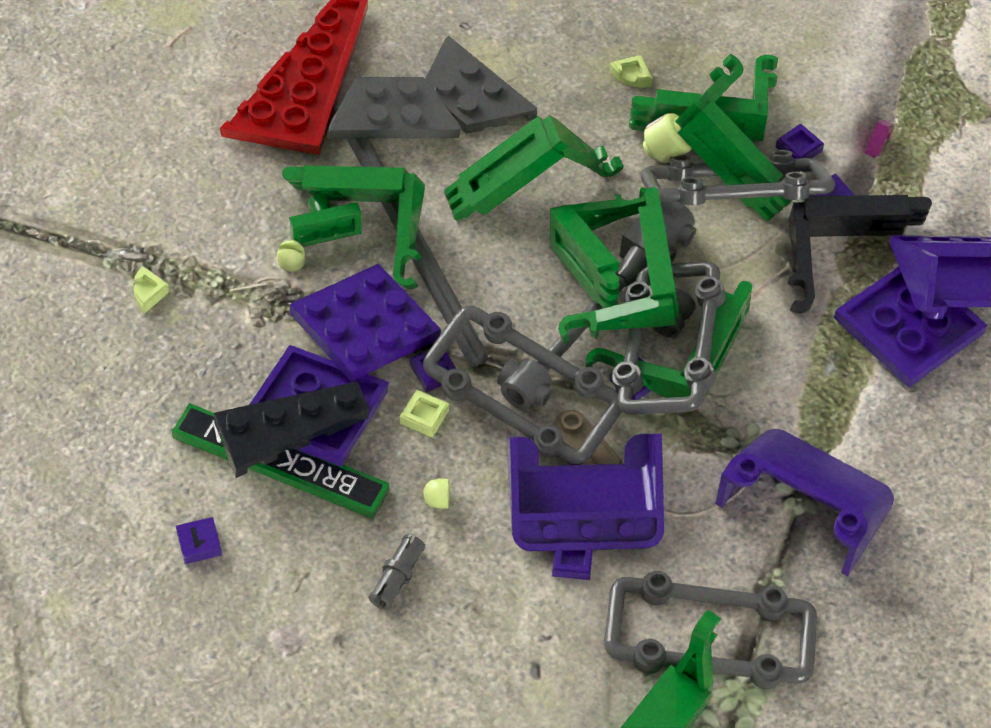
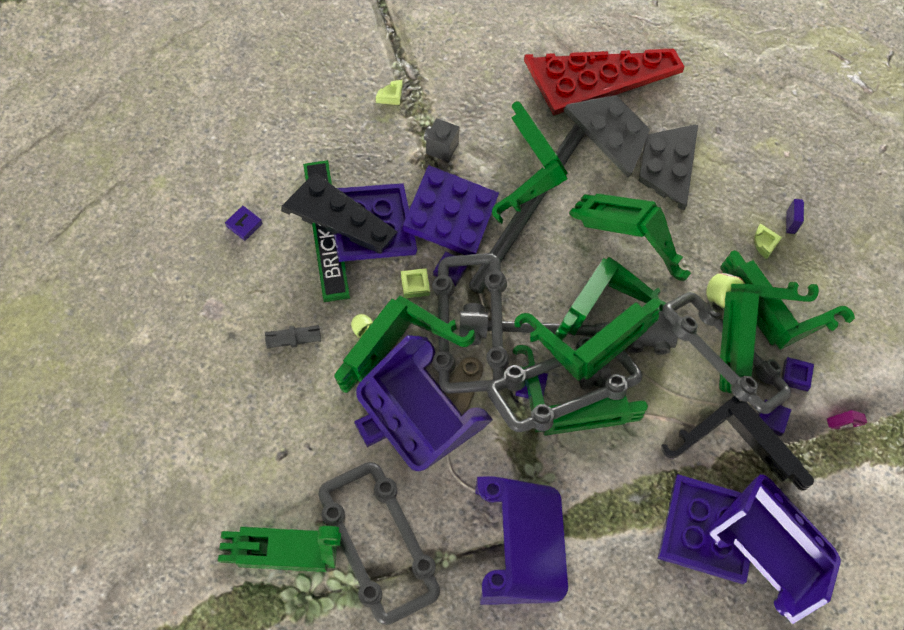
camera: 55 degrees right, 10 degrees up
(265, 273) = (441, 139): none -> dark grey brick
(291, 256) = (466, 148): yellowish green hinge -> none
(324, 222) = (504, 147): green tile -> none
(473, 429) = (385, 333): none -> green hinge
(627, 28) = (794, 216): none -> dark purple tile

